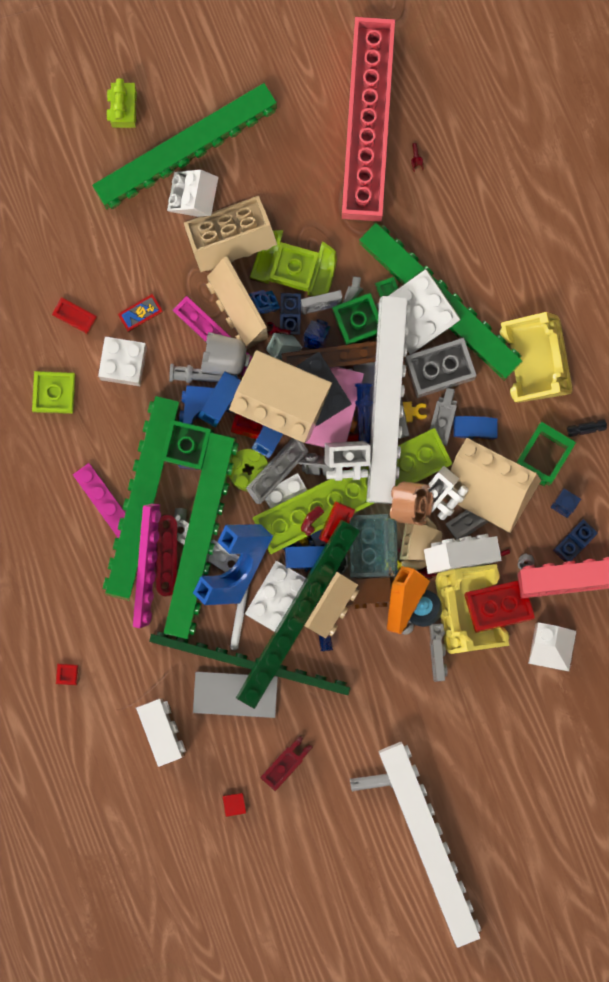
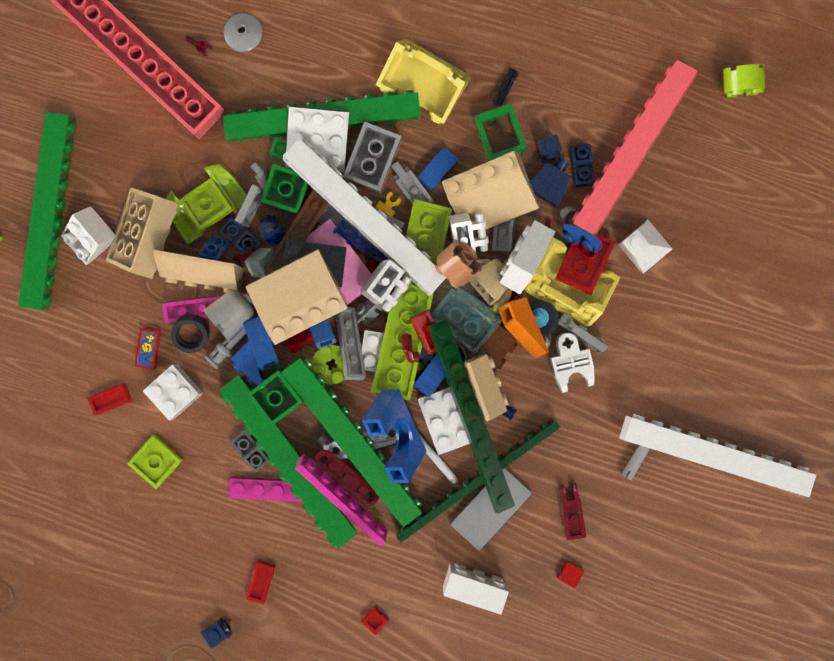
camera: 50 degrees left, 5 degrees up
(23, 556) = (260, 582): none -> red tile
(124, 460) = (249, 451): none -> dark grey slope
(168, 344) = (183, 345): none -> black tyre
(412, 675) = (564, 371): none -> white piece
(456, 193) = (243, 41): none -> light grey dish
(514, 582) = (576, 234): none -> blue slope
(539, 527) = (551, 182): none -> dark blue torso

